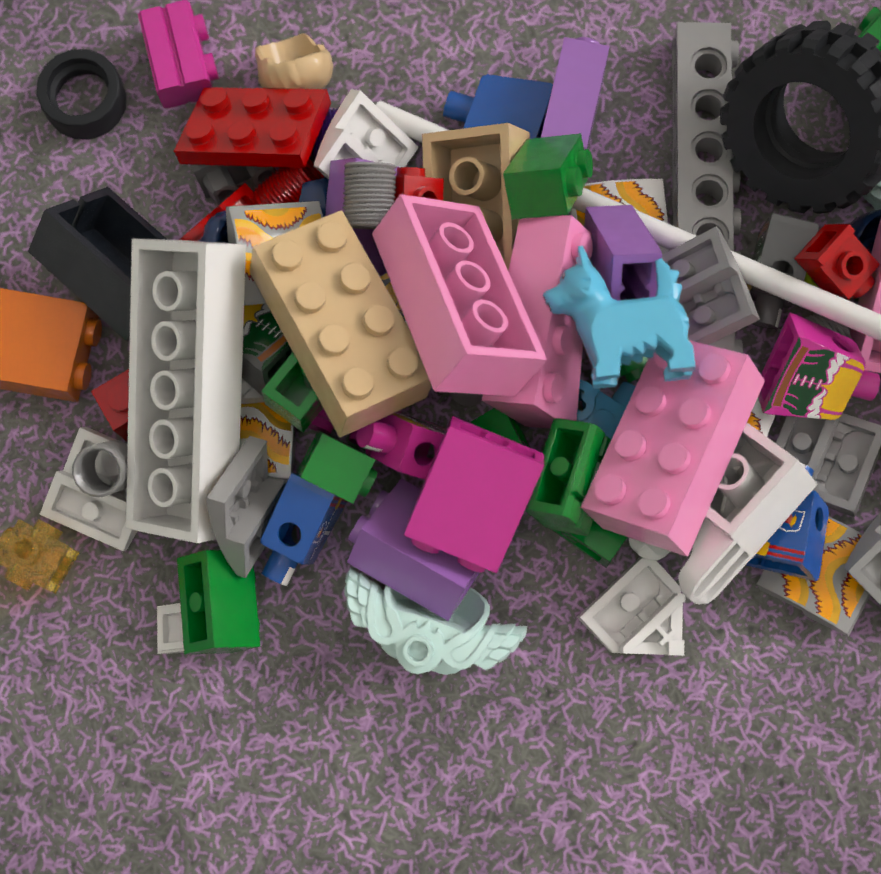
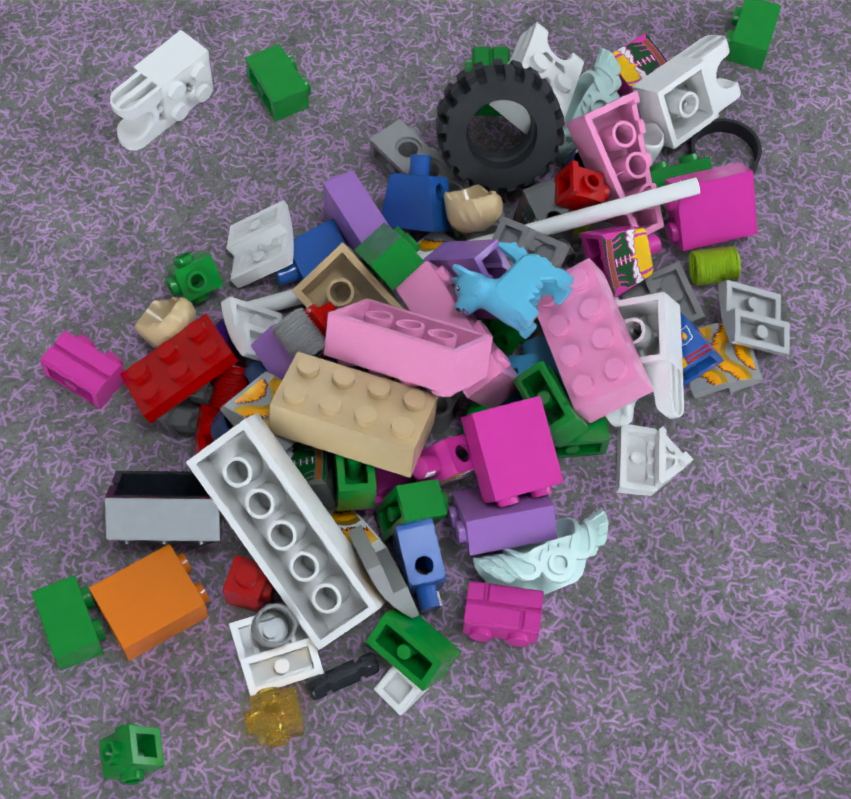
camera: 50 degrees left, 15 degrees down
(72, 64) = (35, 413): black tyre -> none
(136, 568) = (342, 676): none -> black axle
(342, 649) = (503, 613): none -> dark pink brick
(361, 37) = (193, 276): none -> green brick
(460, 56) = (261, 244): none -> white slope
(658, 132) = (416, 198): none -> blue torso
(701, 189) = (472, 209): none -> tan hair

